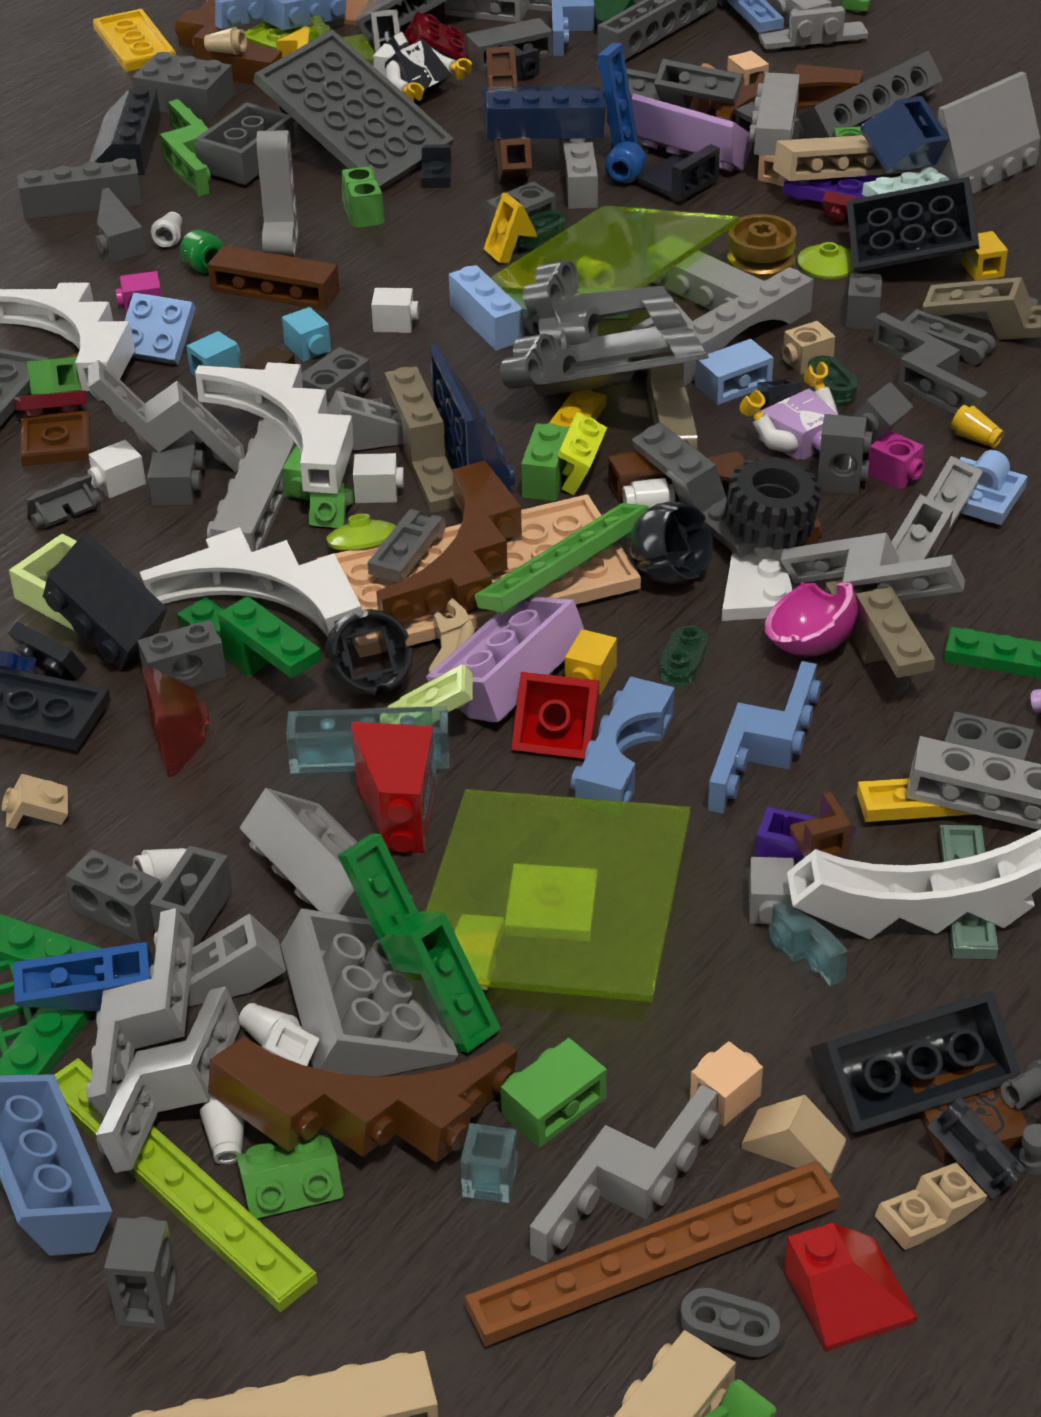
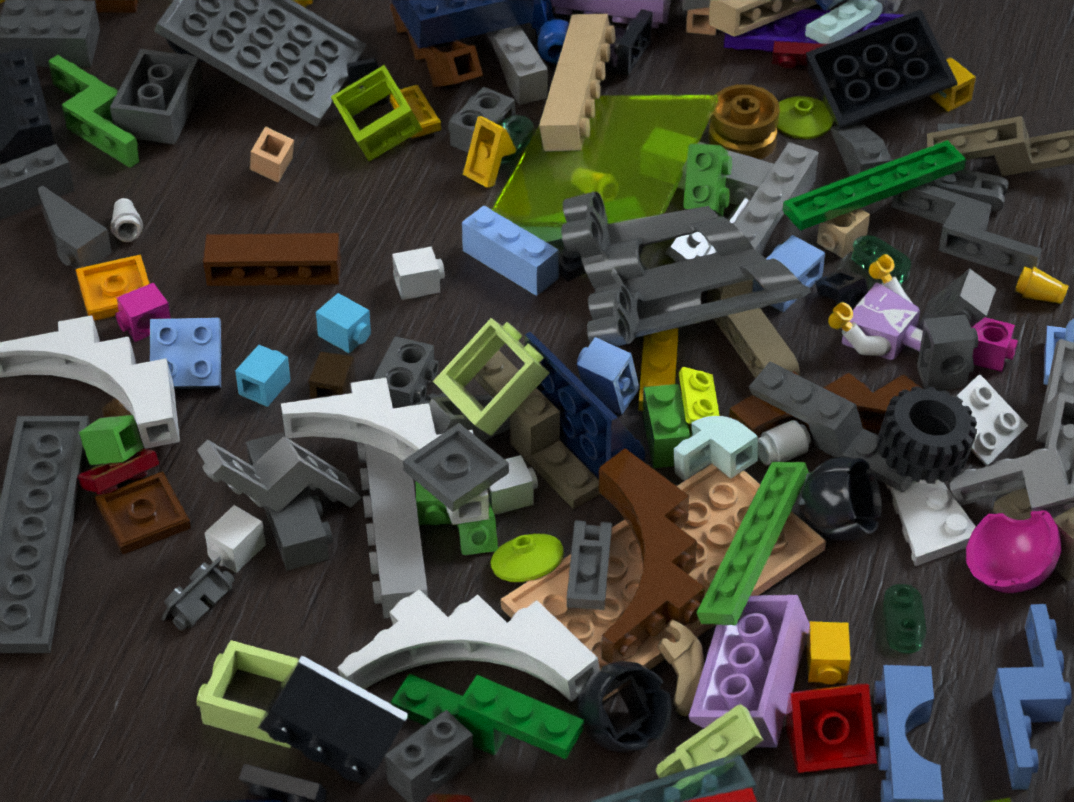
camera: 20 degrees left, 5 degrees up
(121, 265) = (108, 280): none -> light orange tile
(199, 249) = (181, 242): green head -> none
(277, 192) = (243, 165): light grey beam -> none
(314, 435) = (456, 467): none -> dark grey plate
(317, 200) = (271, 154): none -> light nougat brick
(363, 210) = (325, 152): bright green piece -> none
(380, 363) = (471, 361): none -> yellowish green window
(427, 188) = (389, 129): none -> lime window
(467, 194) = (421, 109): none -> yellow plate
(509, 409) = (608, 374): none -> light blue brick
(574, 477) = (719, 442): none -> light aqua brick
(618, 191) = (576, 82): none -> tan brick
(693, 278) = (707, 177): none -> bright green bracket
(849, 311) = (873, 185): none -> green plate
(853, 512) = (995, 419): none -> white hinge

